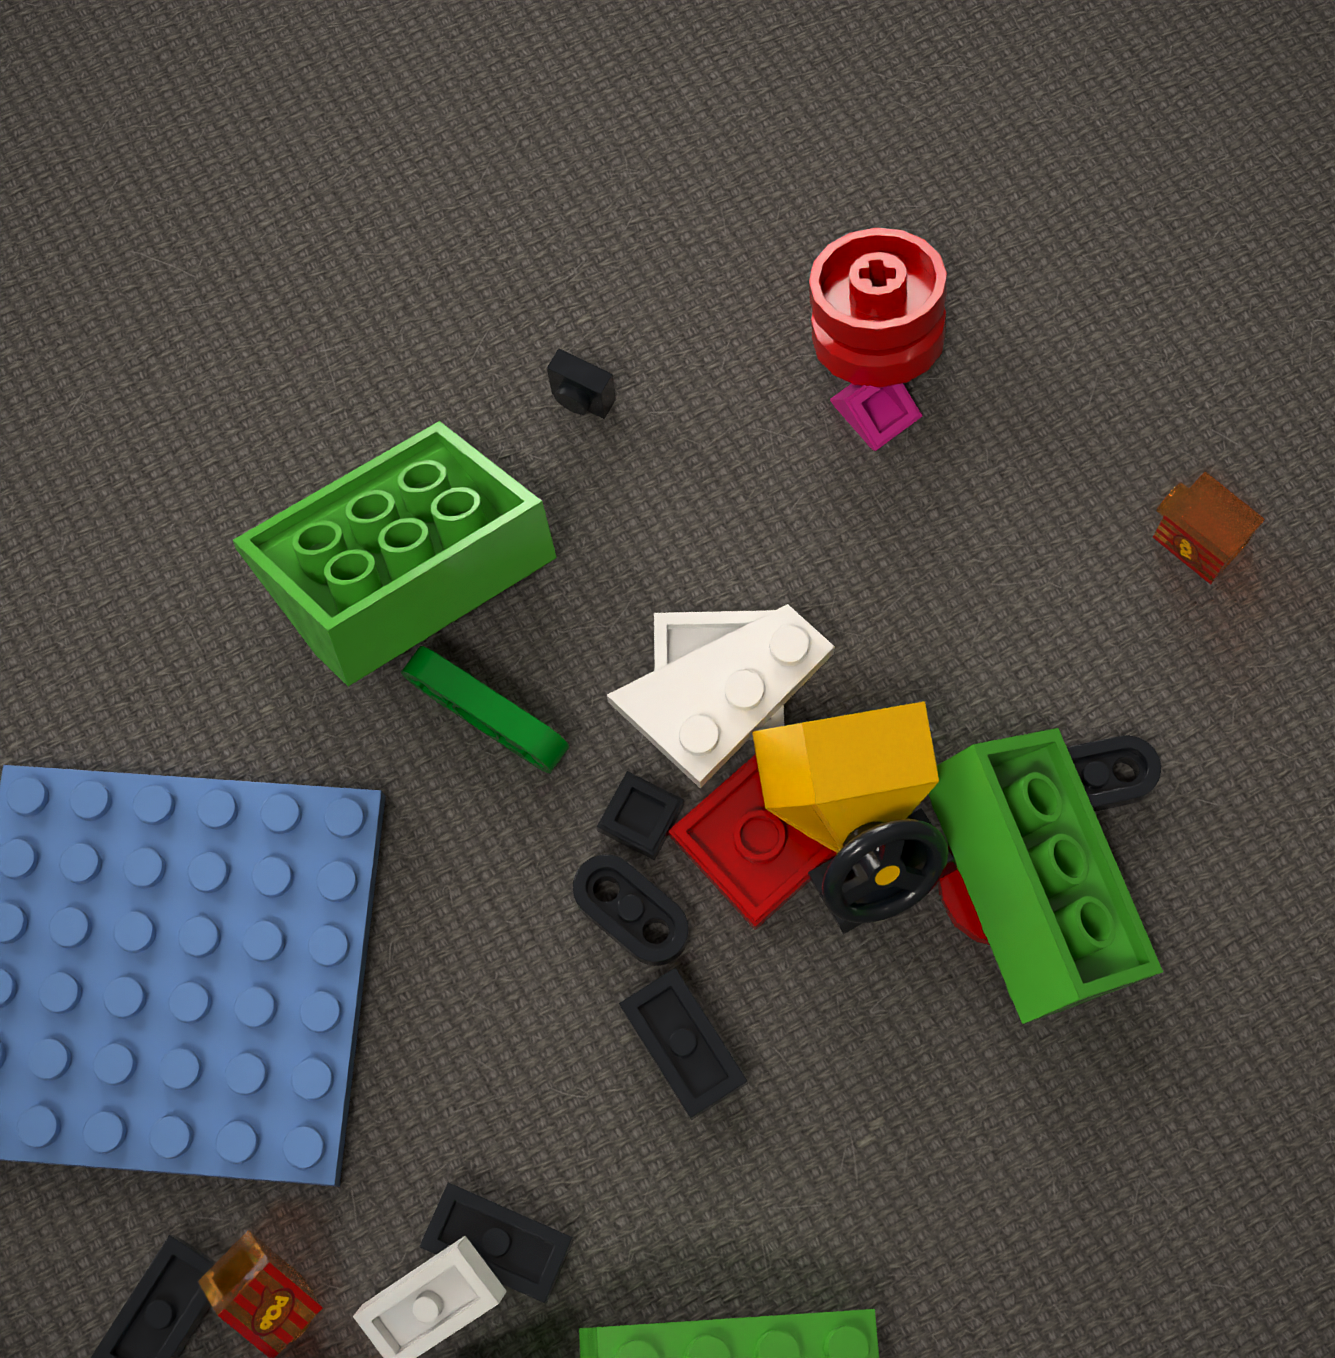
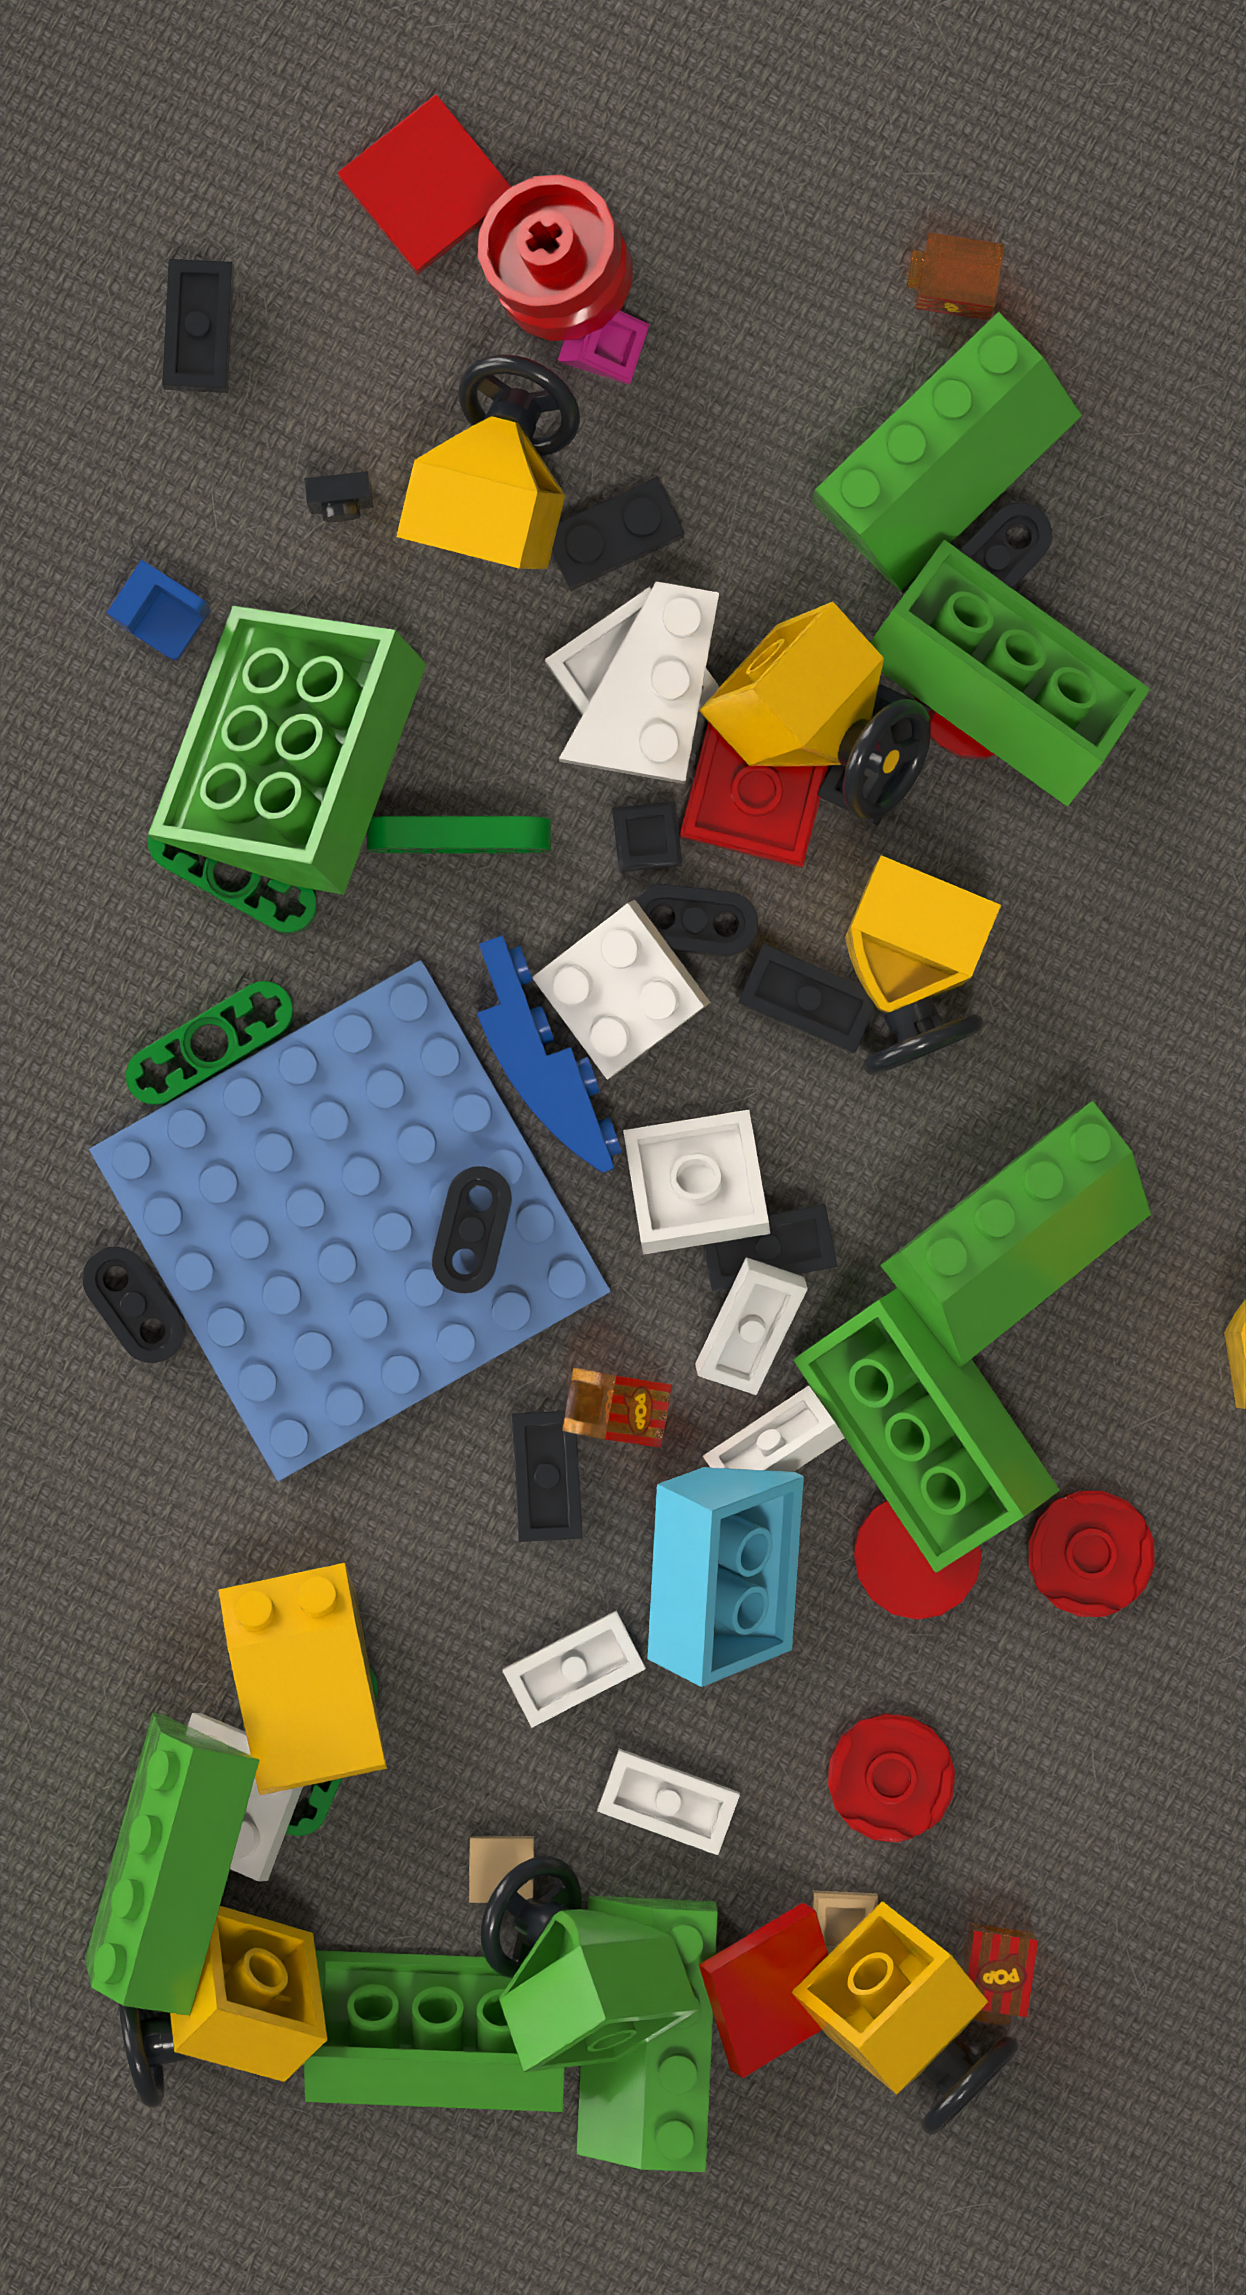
camera: 40 degrees left, 15 degrees up
(121, 727) = (177, 1081): none -> green beam
(247, 1039) = (471, 1229): none -> black plate
(287, 668) = (266, 912): none -> green beam
(376, 384) = (159, 611): none -> blue panel
(409, 965) = (550, 1085): none -> blue slope
(472, 1138) = (696, 1182): none -> white plate
(527, 926) = (621, 989): none -> white plate
(563, 199) = (198, 325): none -> black plate
(704, 435) = (488, 485): none -> yellow piece
(781, 555) = (615, 533): none -> black plate
(801, 1055) = (912, 944): none -> yellow piece
(810, 201) = (425, 184): none -> red tile
(1110, 658) = (947, 452): none -> bright green slope

